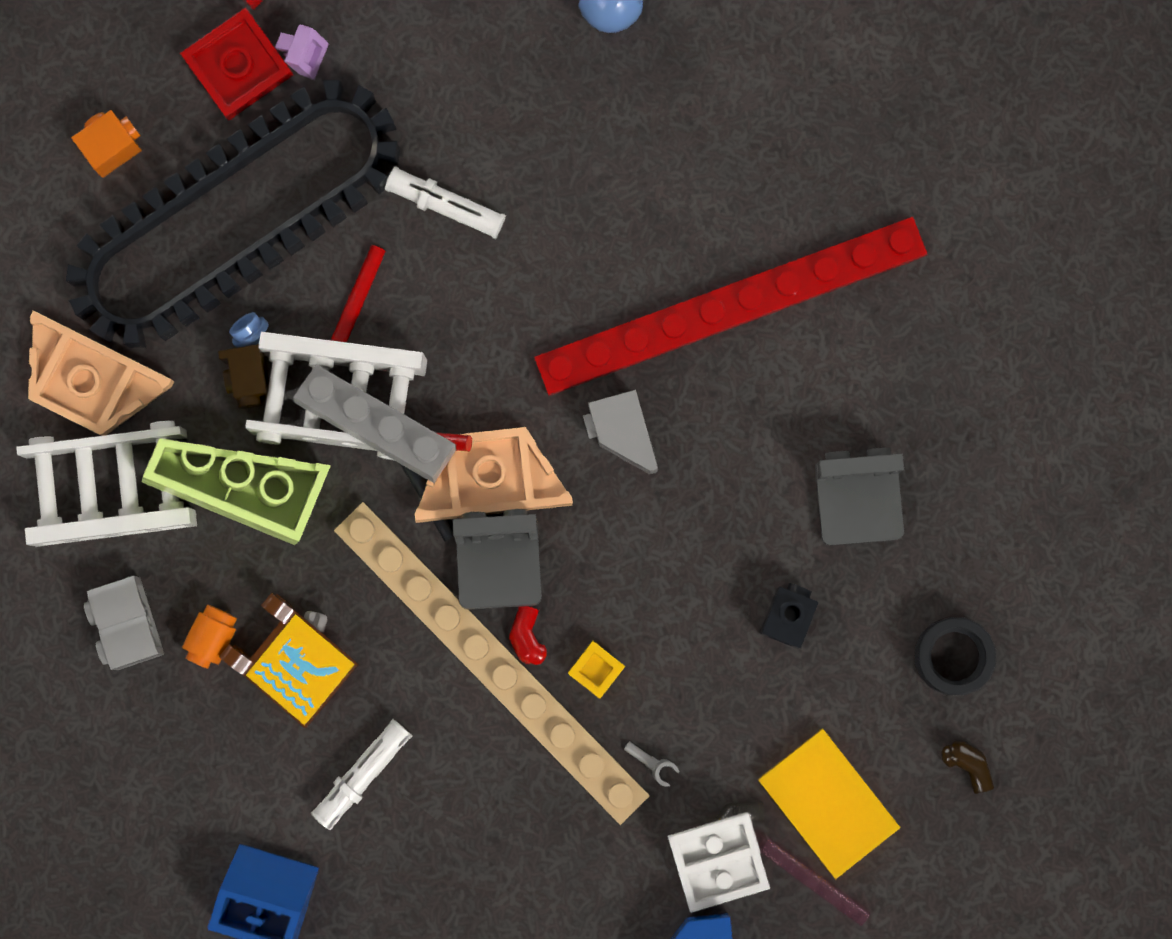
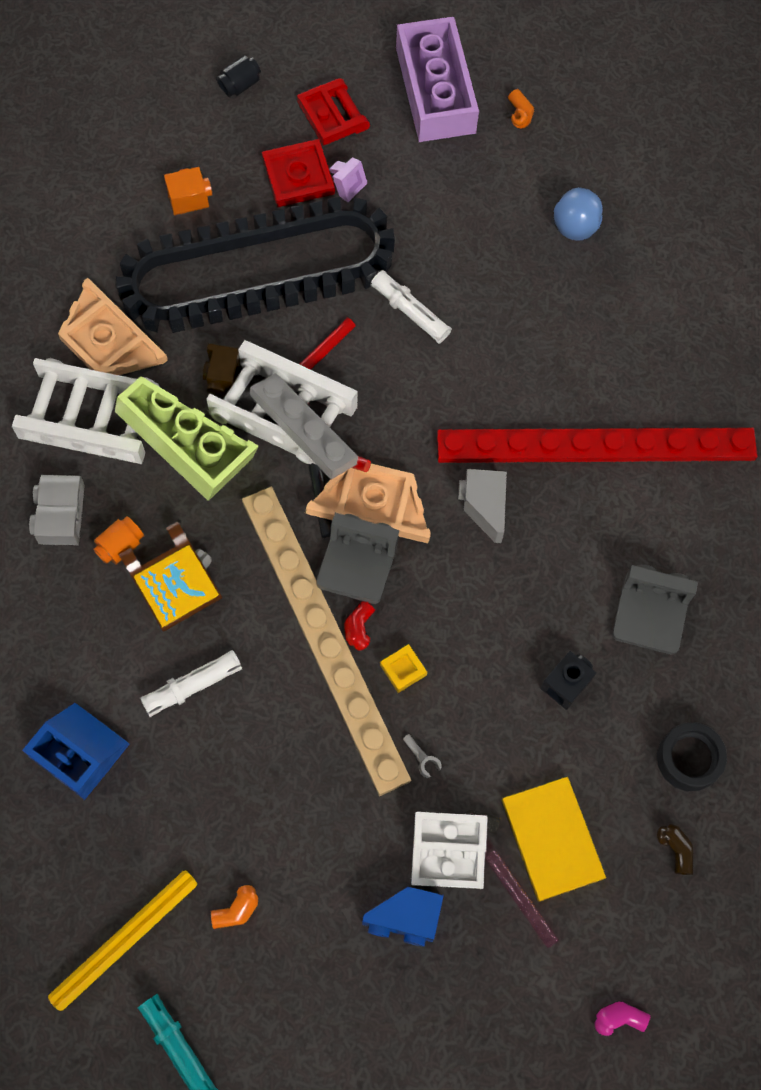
camera: 10 degrees right, 15 degrees down
(248, 330) = (235, 340): medium blue plate -> none

